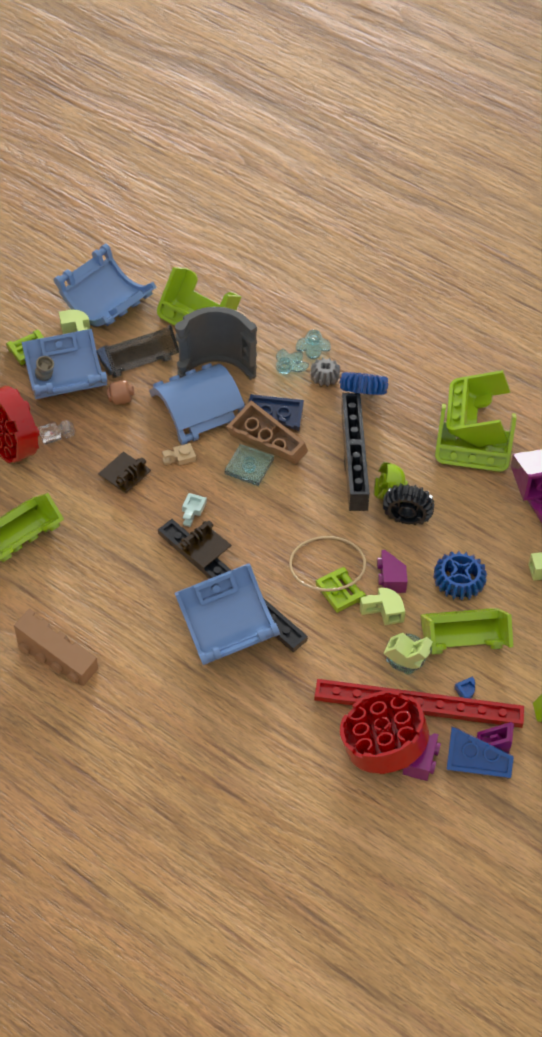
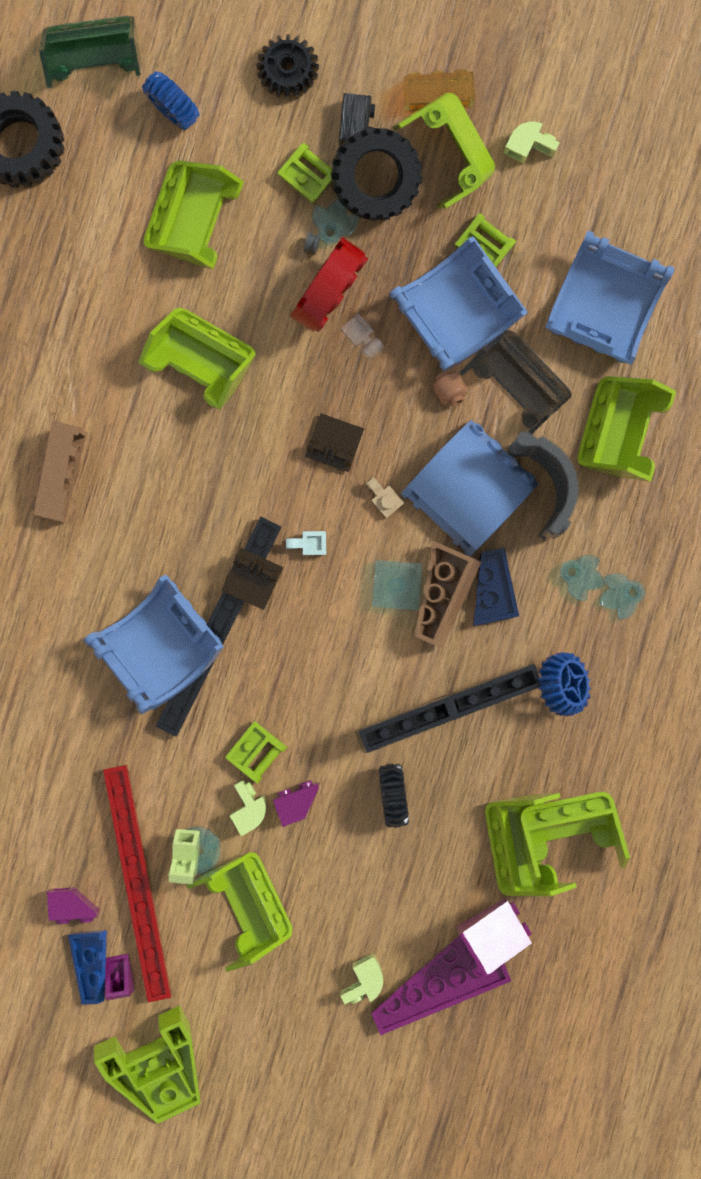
camera: 70 degrees right, 35 degrees up
(44, 368) = (450, 280): dark tan wheel -> none
(73, 321) = (545, 284): yellowish green brick -> none
(325, 372) = (585, 624): light grey gear -> none
(329, 589) = (329, 725): tan piece -> none
(384, 732) = (68, 886): red brick -> none
(390, 476) = (424, 761): lime cylinder -> none
(459, 582) = (312, 874): blue gear -> none
(466, 688) = (176, 928): blue tile -> none

